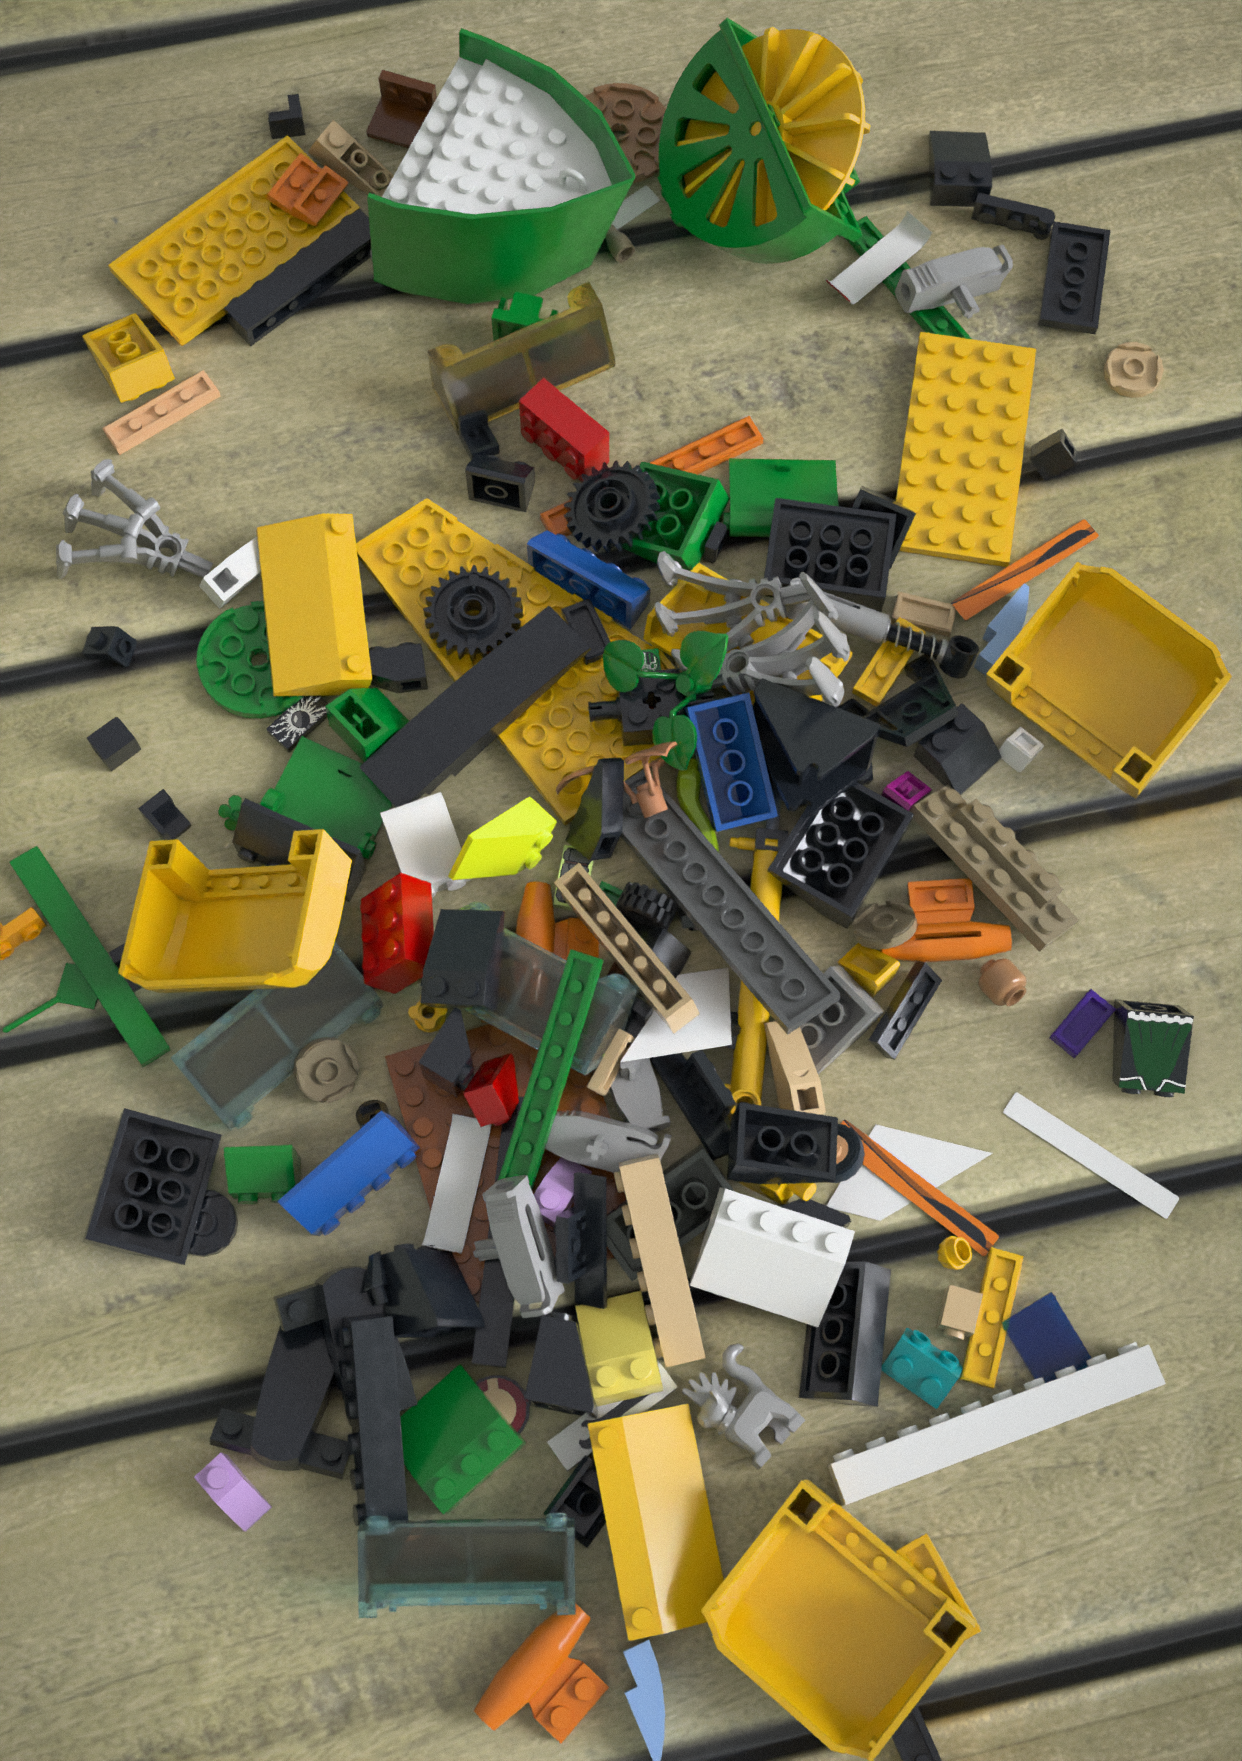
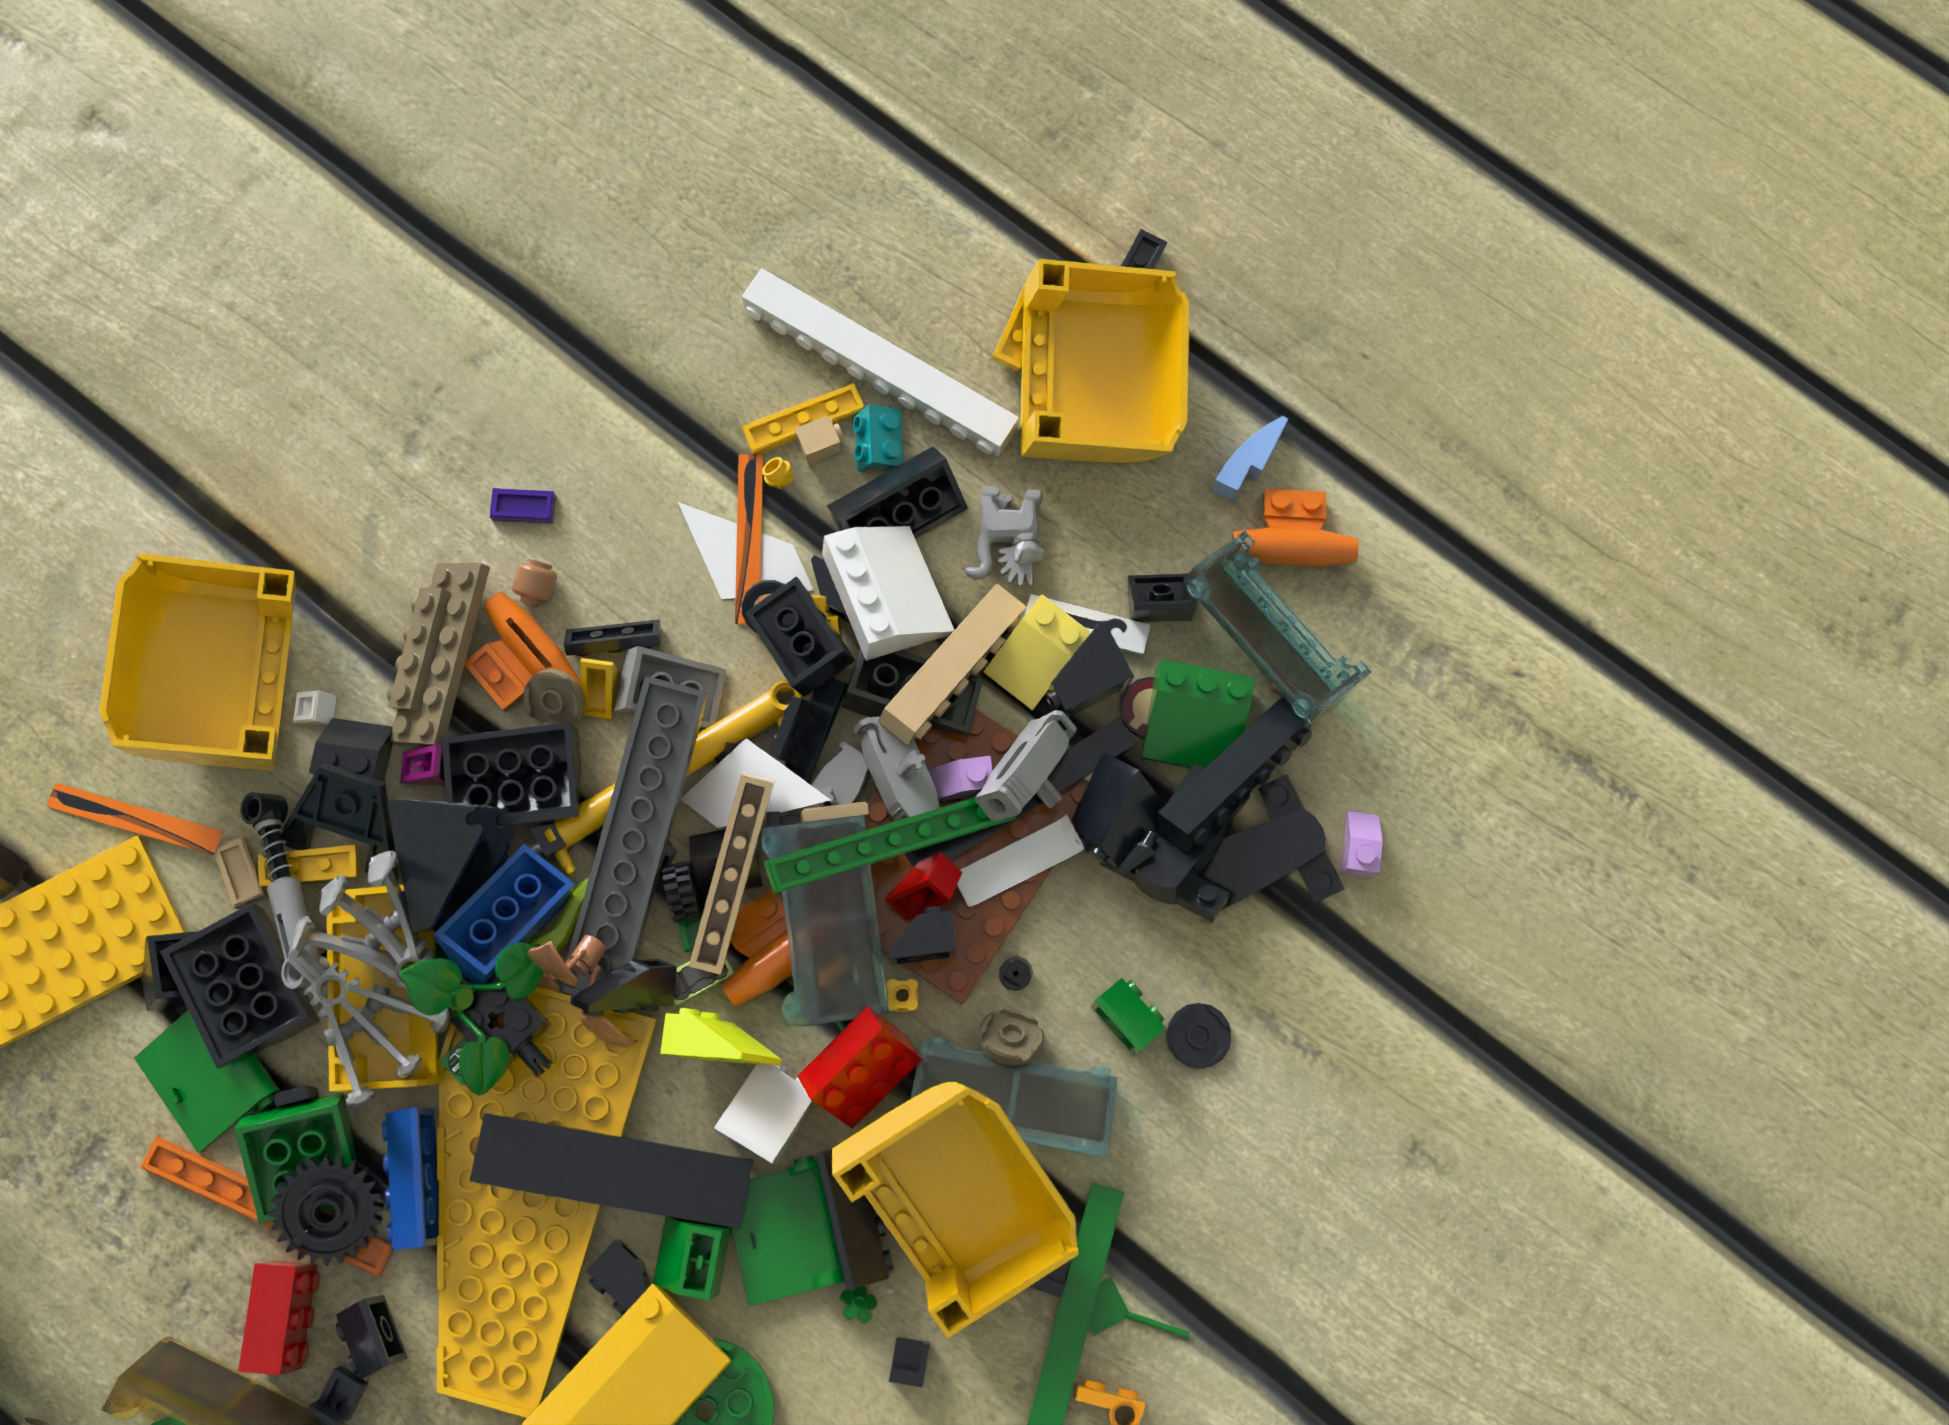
camera: 130 degrees left, 5 degrees up
(152, 1187) = (1209, 1095): black slope -> none
(298, 721) = (735, 1324): tile -> none
(350, 1174) = (1075, 944): blue slope -> none
(464, 960) = (844, 982): black slope -> none
(467, 592) = (497, 1251): black gear -> none
(583, 1241) = (983, 728): black bracket -> none
(587, 625) = (462, 1140): black tile -> none
(656, 1519) = (1131, 537): yellow slope -> none
(794, 1071) = (734, 675): tan slope -> none
(1003, 629) = (211, 790): light blue slope -> none
(1046, 1339) = (790, 372): clear blue piece -> none
(1091, 1155) = (624, 435): white sticker -> none
(1151, 1047) = (504, 441): slope -> none

